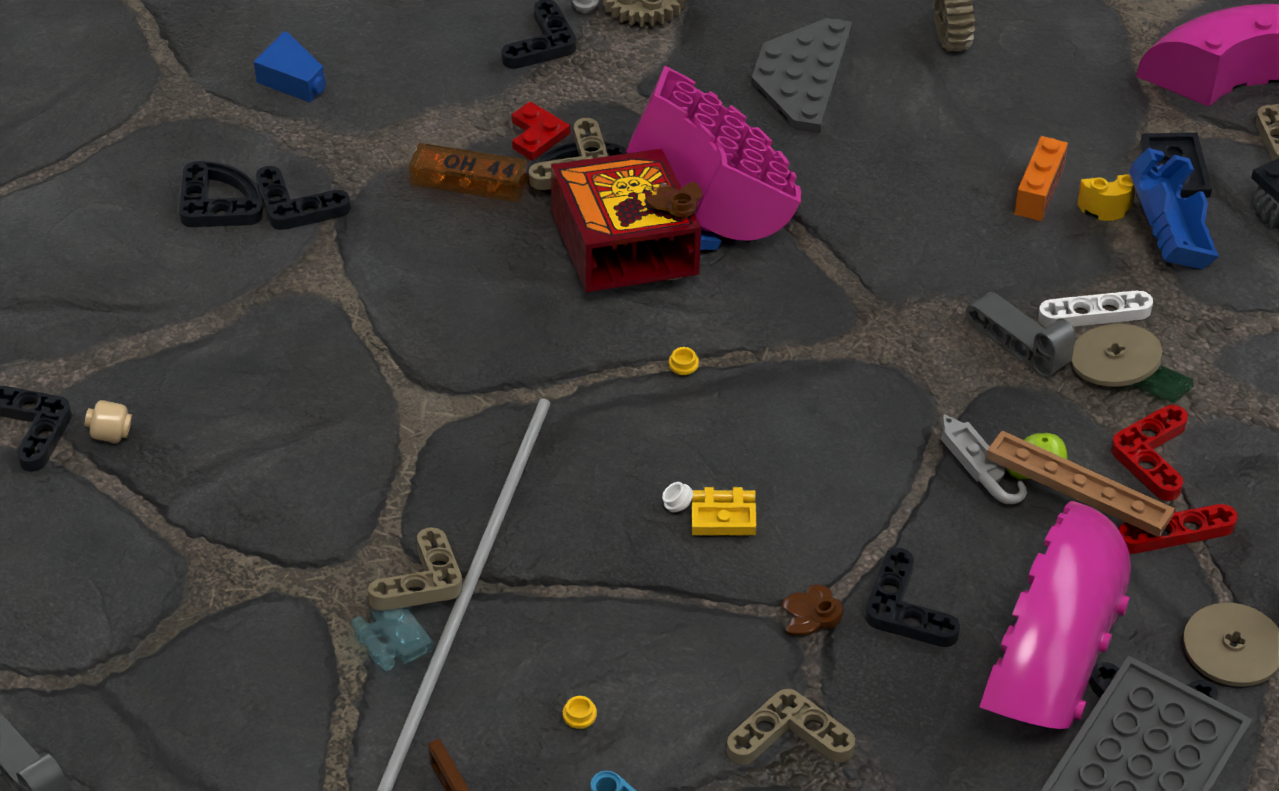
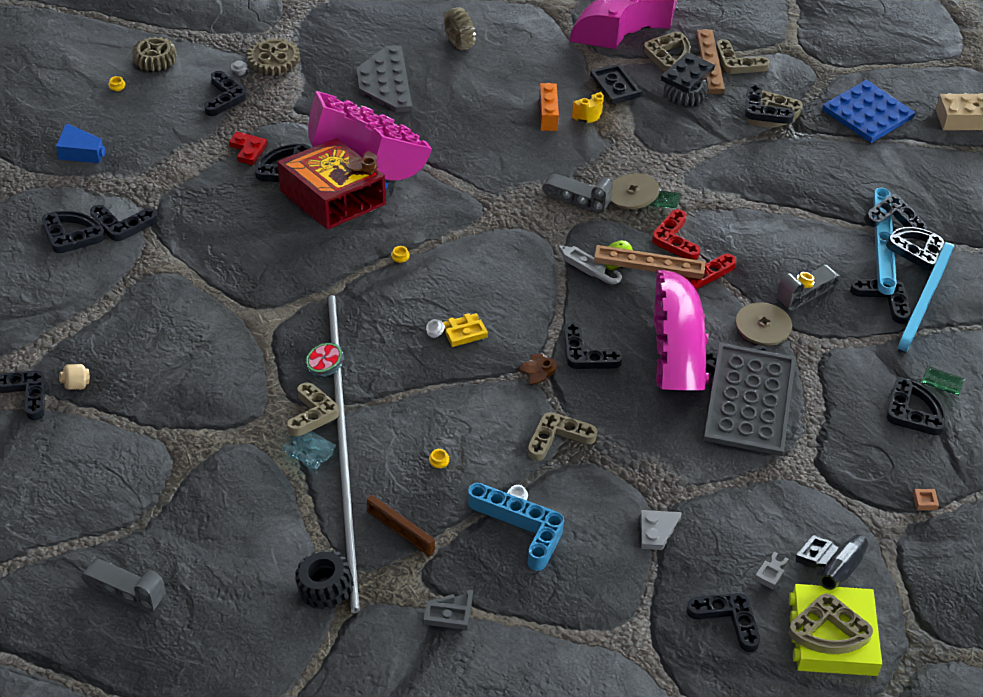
camera: 25 degrees left, 0 degrees up
(468, 172) = (220, 180): clear orange brick -> none
(482, 498) = (325, 359): none -> tile
(582, 142) = (270, 169): dark tan beam -> none
(1137, 307) = (627, 163): white beam -> none
(1175, 220) = (633, 110): blue piece -> none

